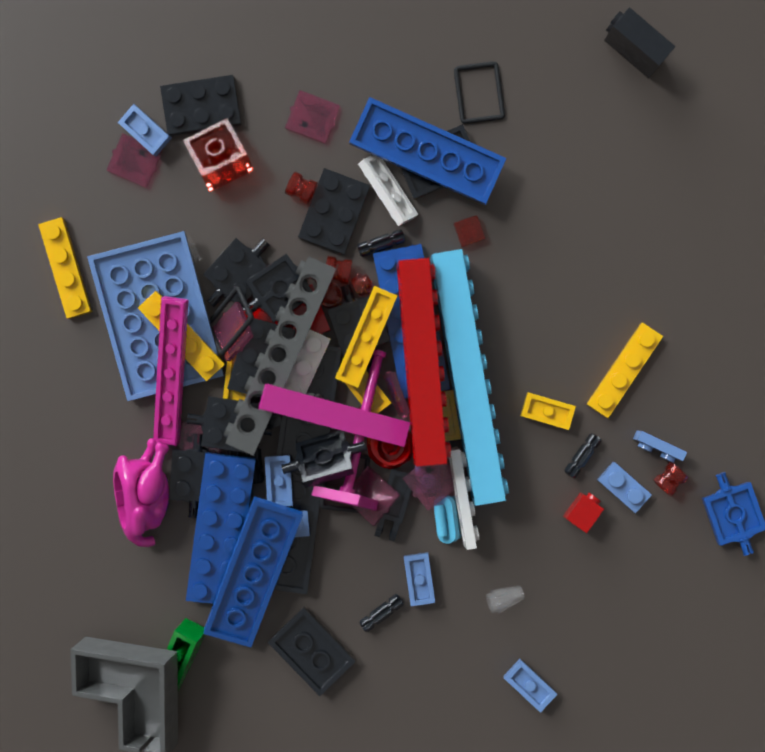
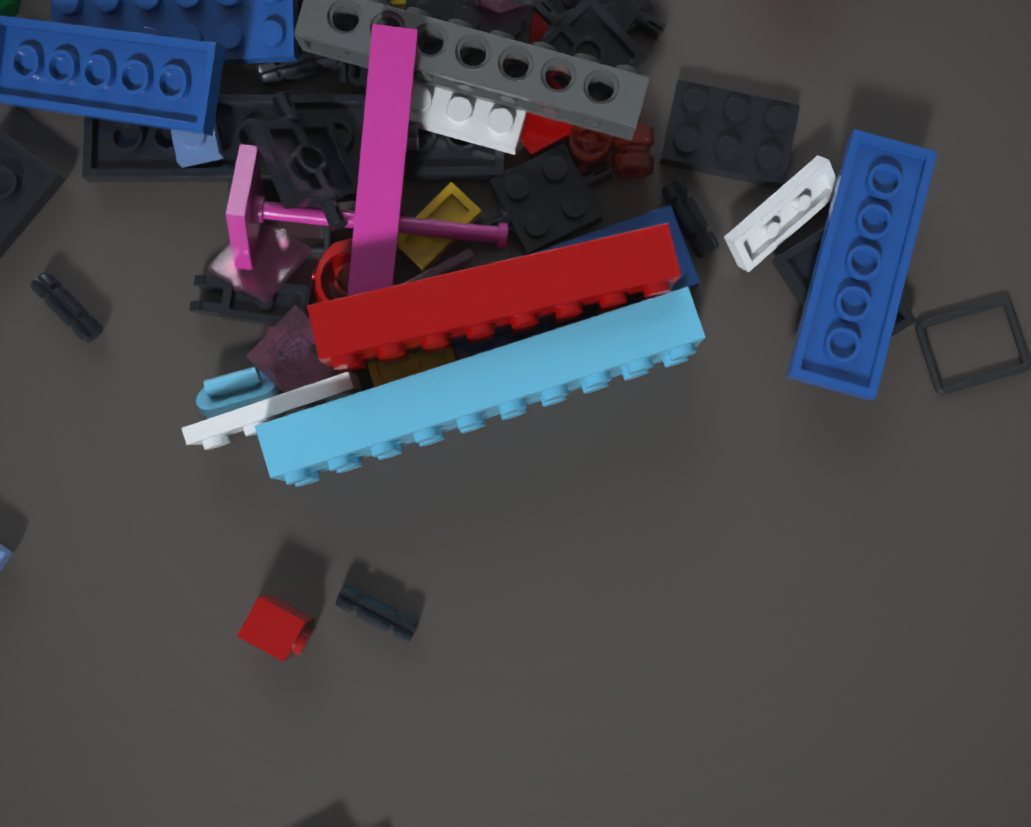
camera: 85 degrees right, 5 degrees down
(277, 484) = (250, 99): medium blue plate -> none
(301, 187) = (761, 68): clear red wheel -> none
(312, 116) = (880, 78): clear pink piece -> none
(362, 284) = (615, 194): clear red plate -> none
(366, 336) = (524, 204): yellow plate -> none
(419, 579) = (129, 361): medium blue plate -> none
(469, 231) = (734, 361): clear red plate -> none
(504, 598) = (112, 510): clear cone -> none
(548, 411) = (445, 540): yellow plate -> none
(624, 370) = (537, 666): yellow plate -> none
(624, 487) = (330, 695): medium blue plate -> none
(667, 450) = (403, 764): medium blue plate -> none
(670, 479) = (354, 776): clear red wheel -> none

